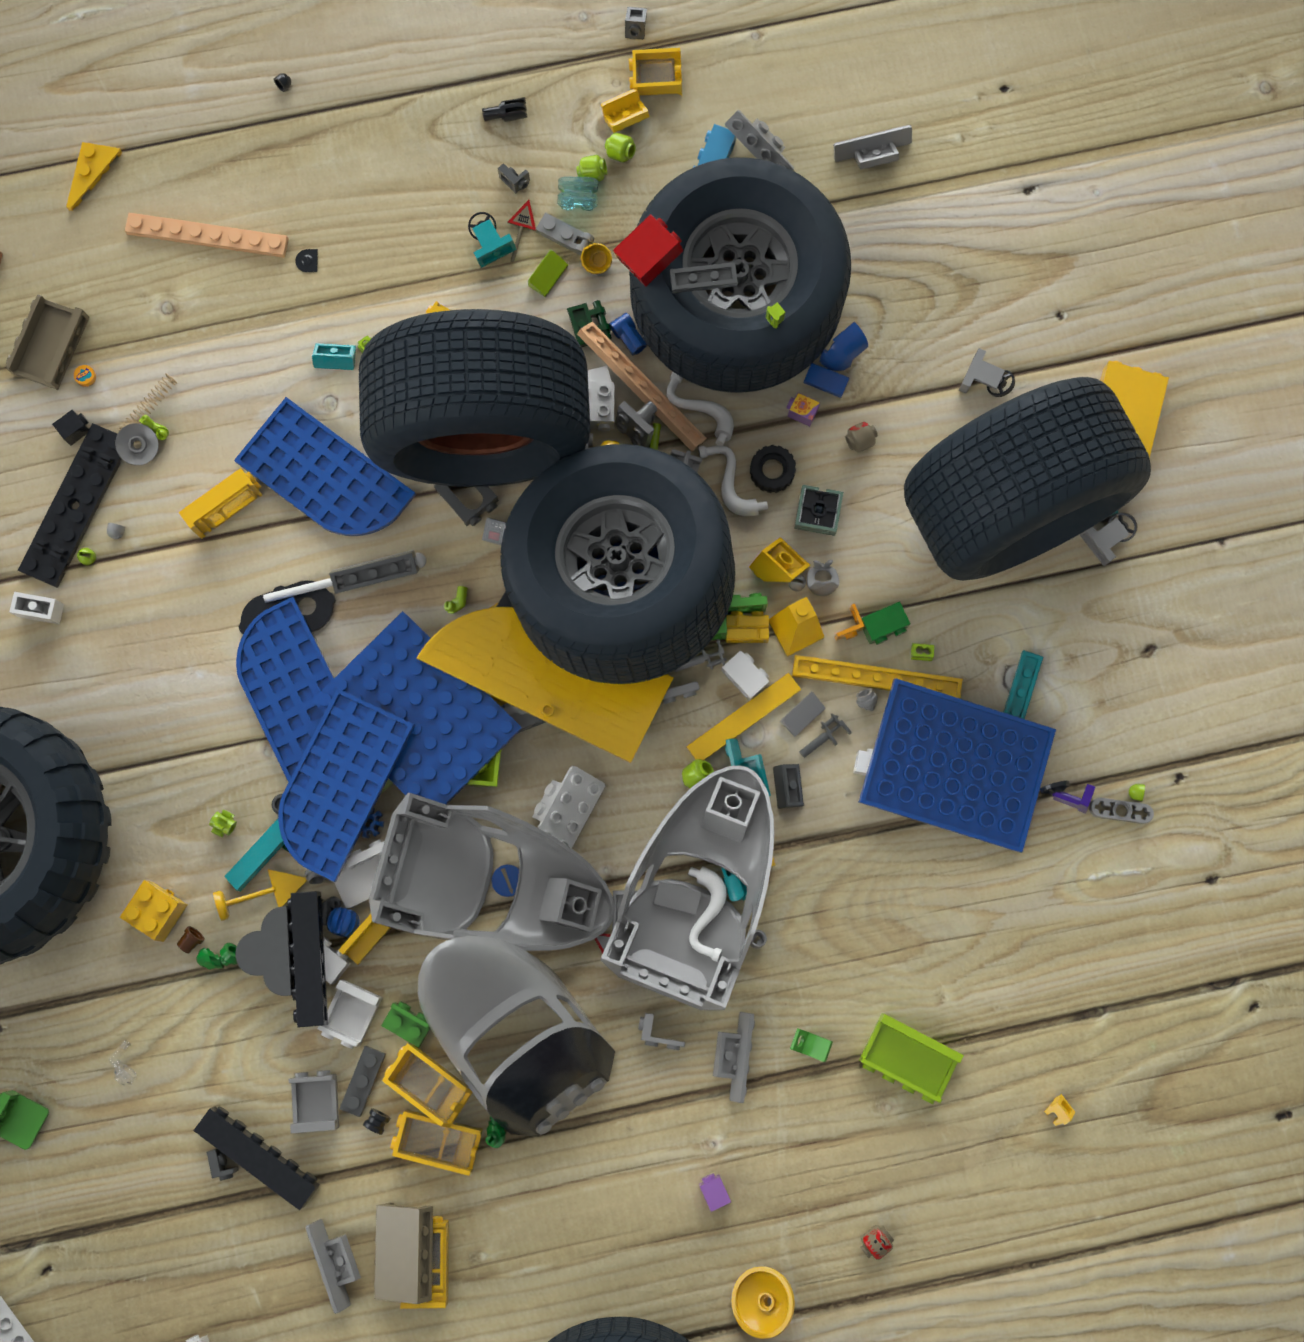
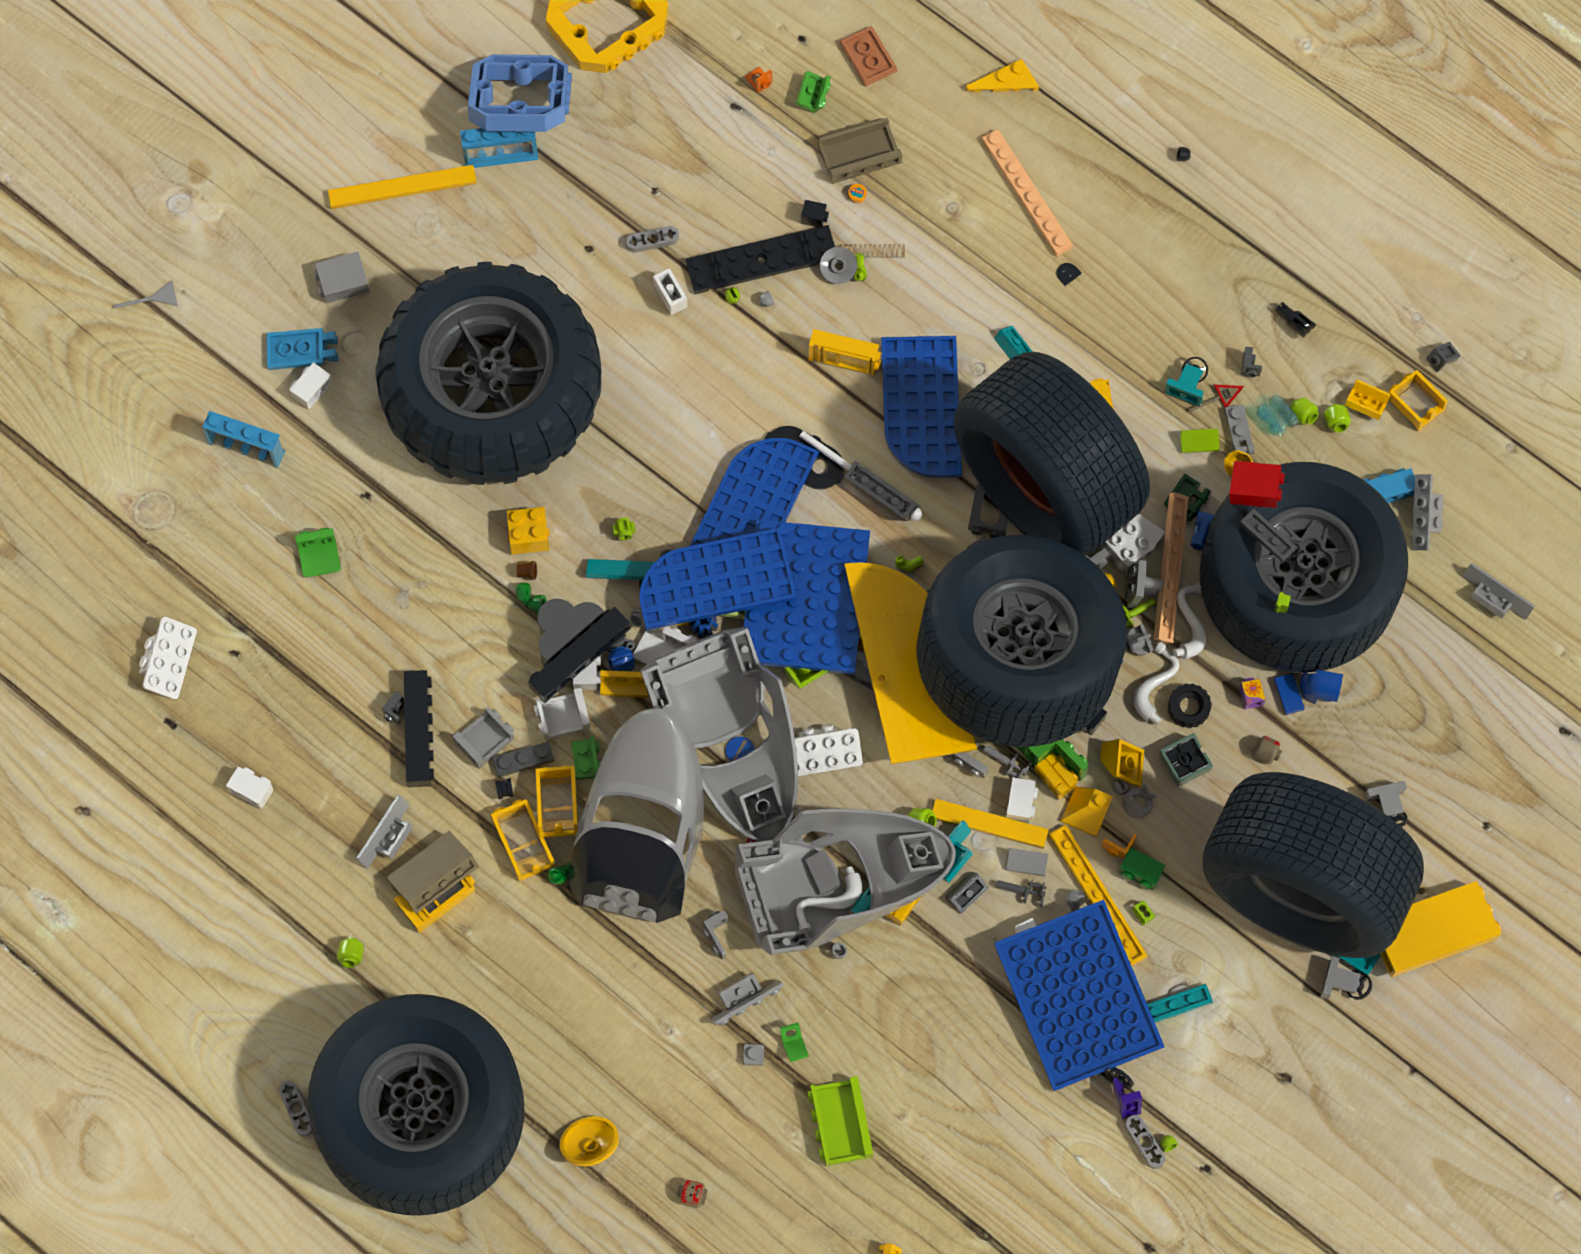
camera: 50 degrees right, 10 degrees down
(282, 886) = (613, 599): yellow piece -> none
(714, 1191) = (638, 1054): medium lavender brick -> none
(792, 1087) = (753, 1055): none -> light grey plate

